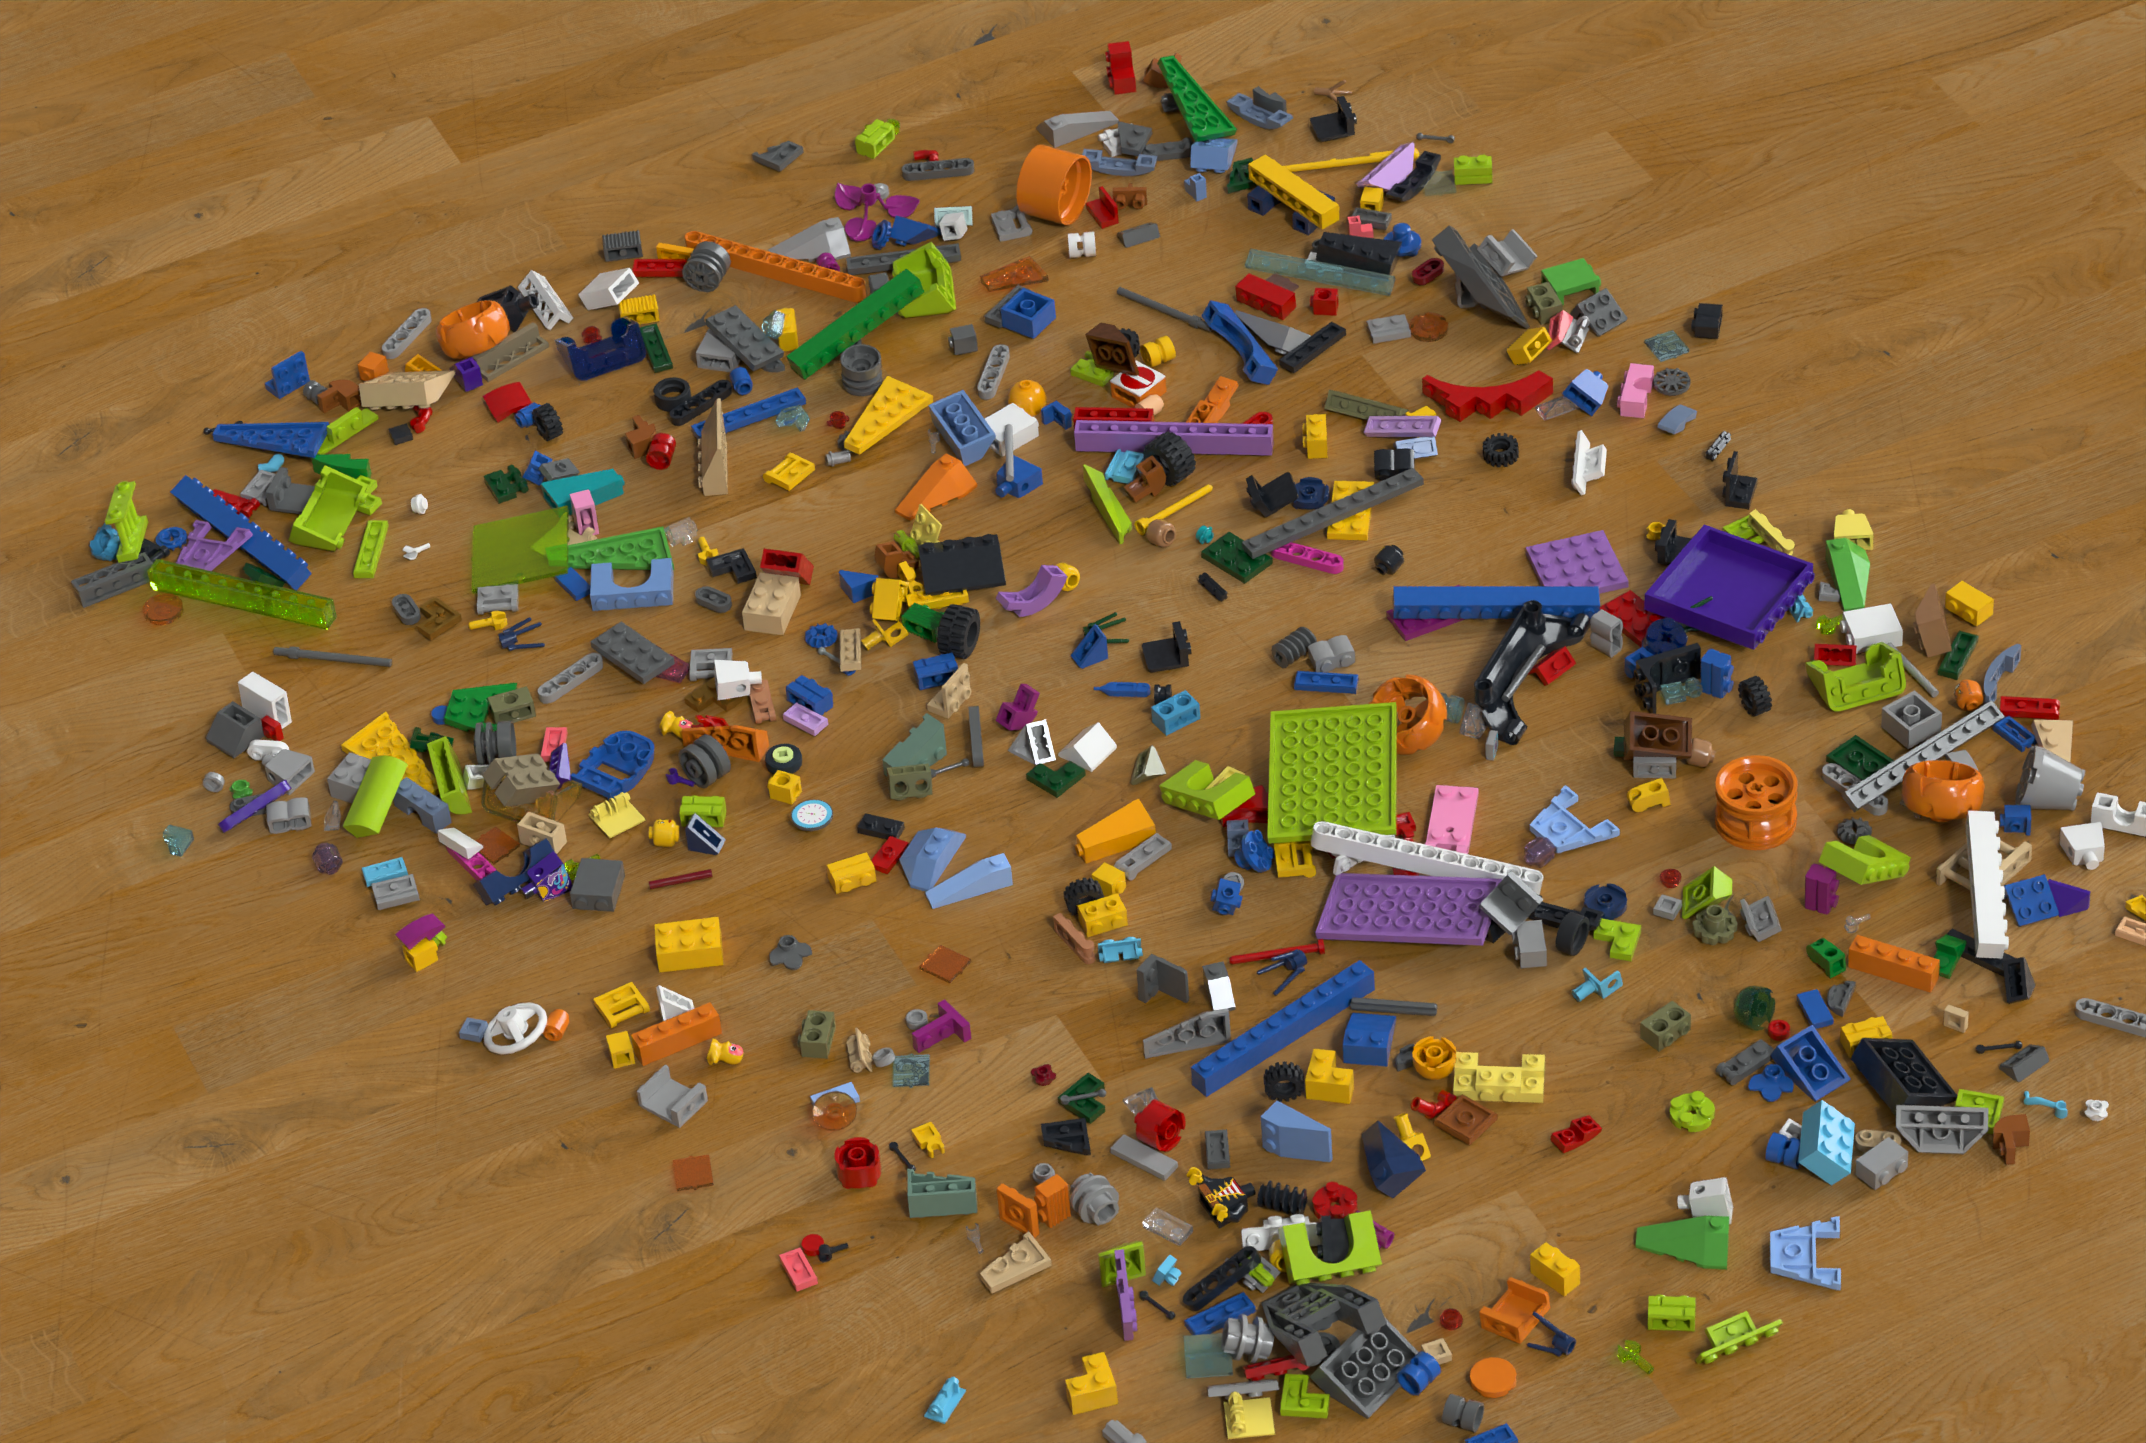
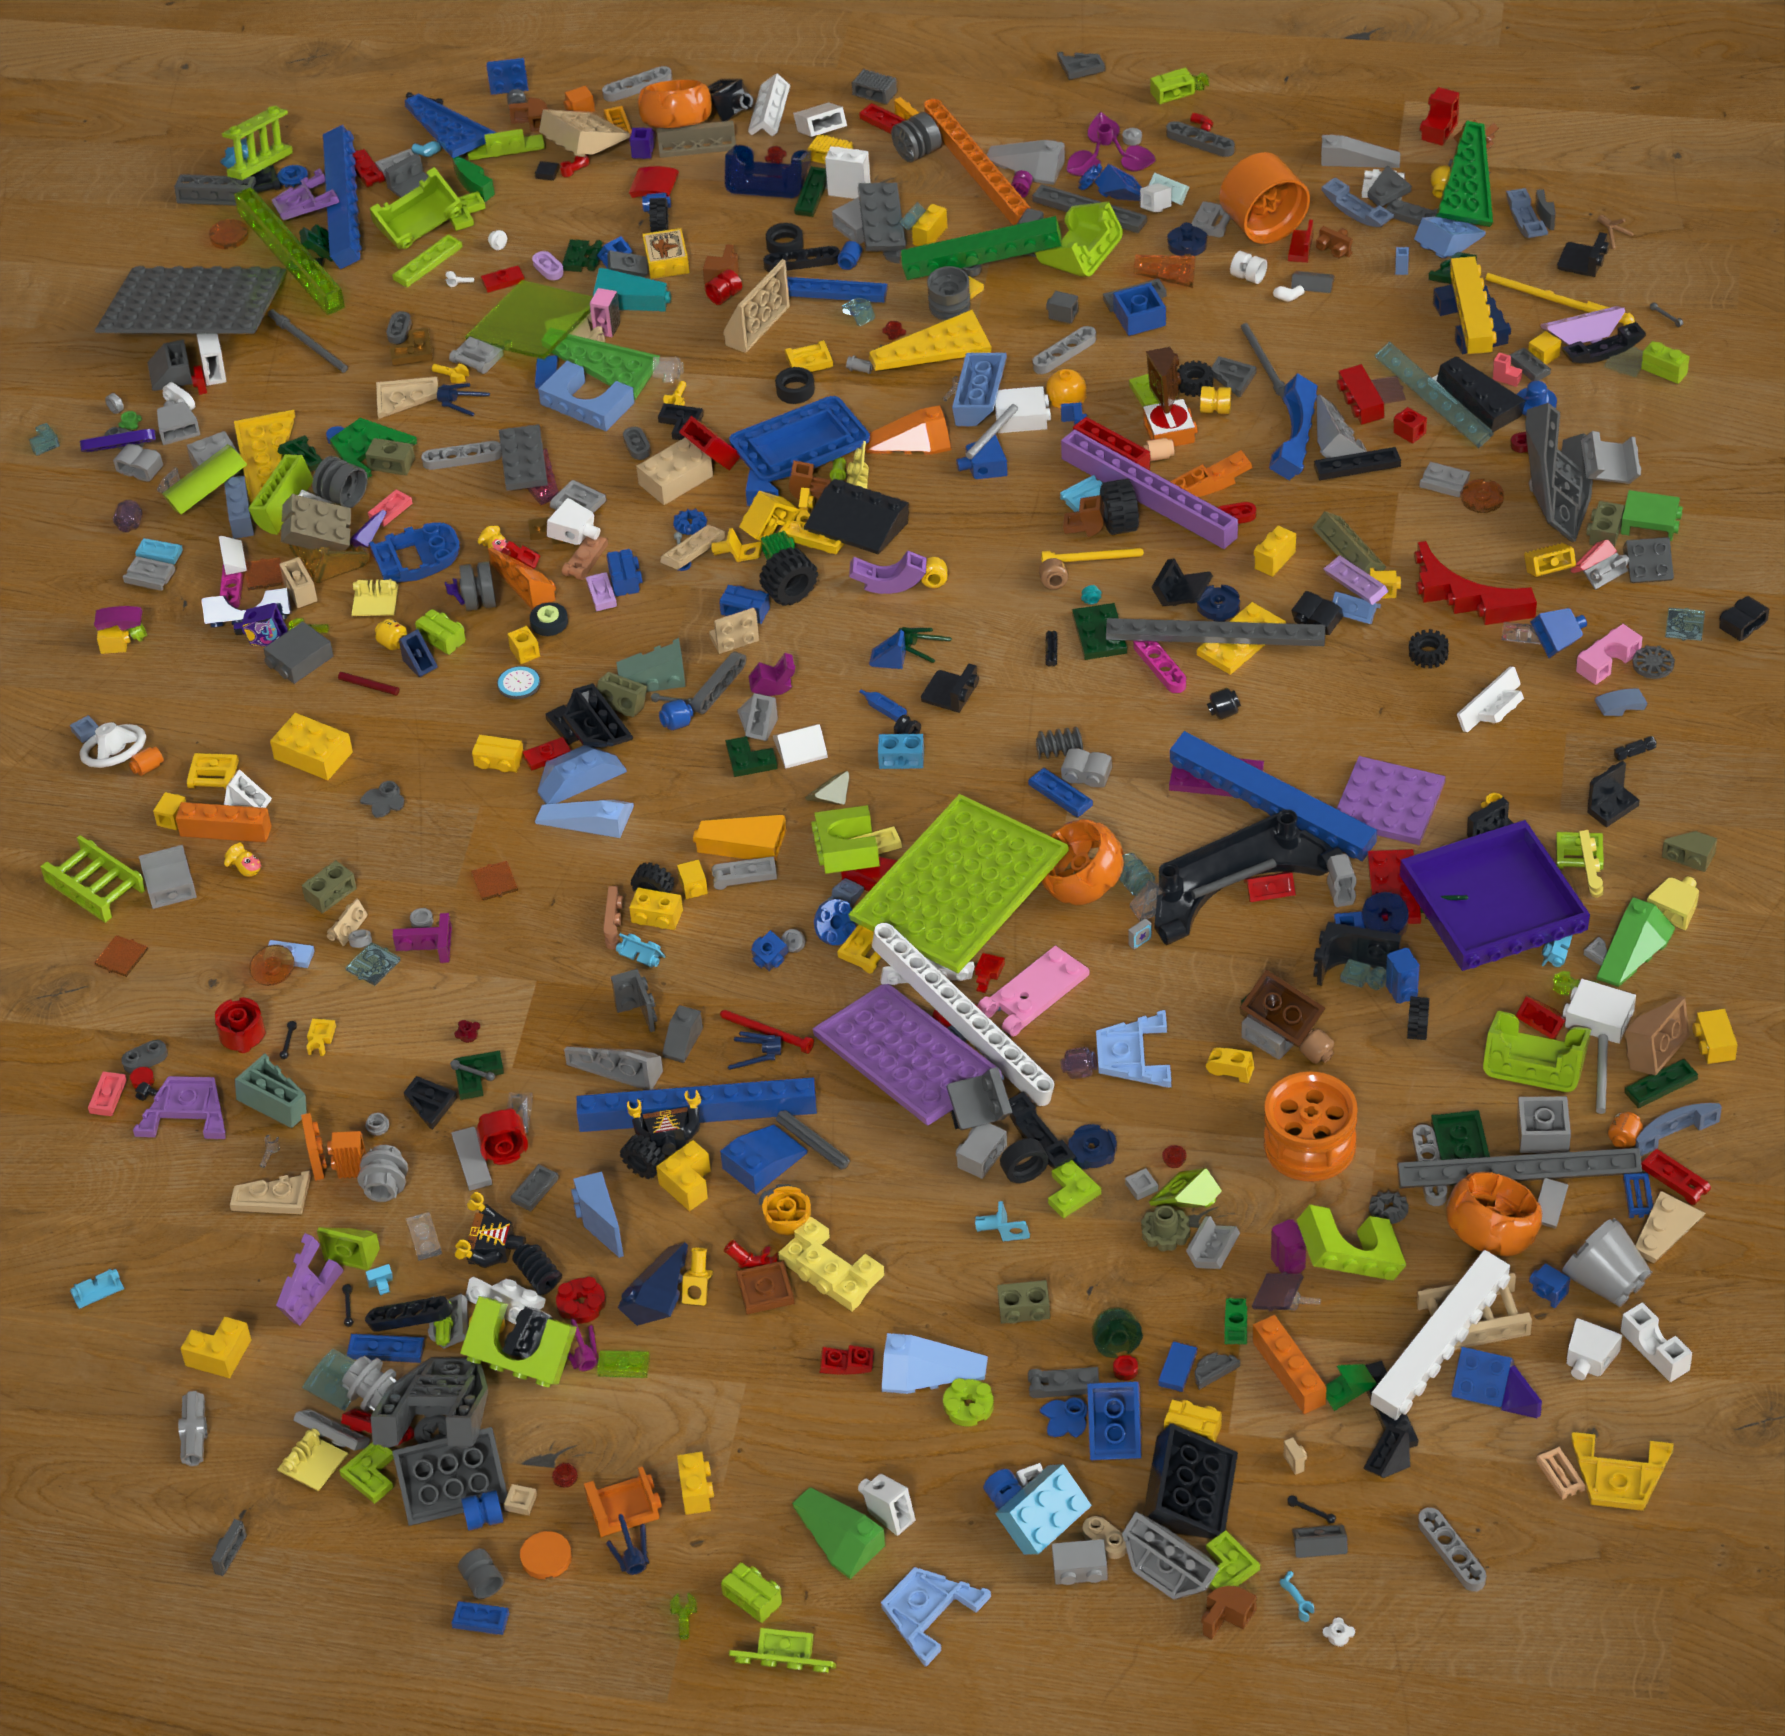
camera: 35 degrees right, 5 degrees up
(204, 668) = (192, 300): none -> dark grey baseplate
(455, 532) = (502, 279): none -> red plate
(469, 656) = (404, 394): none -> tan wing
(486, 504) = (548, 265): none -> lavender plate
(582, 447) = (665, 253): none -> brick
(609, 1145) = (86, 895): none -> lime fence
(680, 317) = (845, 170): none -> white brick
(796, 487) = (797, 395): none -> black tyre
(800, 1226) = (144, 1055): none -> dark grey plate
(852, 529) = (806, 434): none -> blue wedge
(871, 1237) = (186, 1100): none -> medium lavender wing
(913, 807) = (594, 719): none -> black wedge
(968, 774) = (675, 714): none -> blue head
(1015, 245) = (1187, 240): none -> dark blue plate
(1107, 503) = (1037, 521): lime wedge -> none
(1129, 252) = (1287, 294): none -> white arm
(1149, 327) = (1233, 374): none -> dark grey wing
(1169, 115) = (1439, 179): none -> yellow piece
(1288, 1046) = (668, 1128): none -> black torso
(1414, 1226) = (623, 1364): none -> clear neon green plate
(1633, 1105) = (923, 1363): none -> light blue wedge
(1828, 492) = (1690, 849): none -> olive slope
(1836, 923) = (1277, 1291): none -> piece

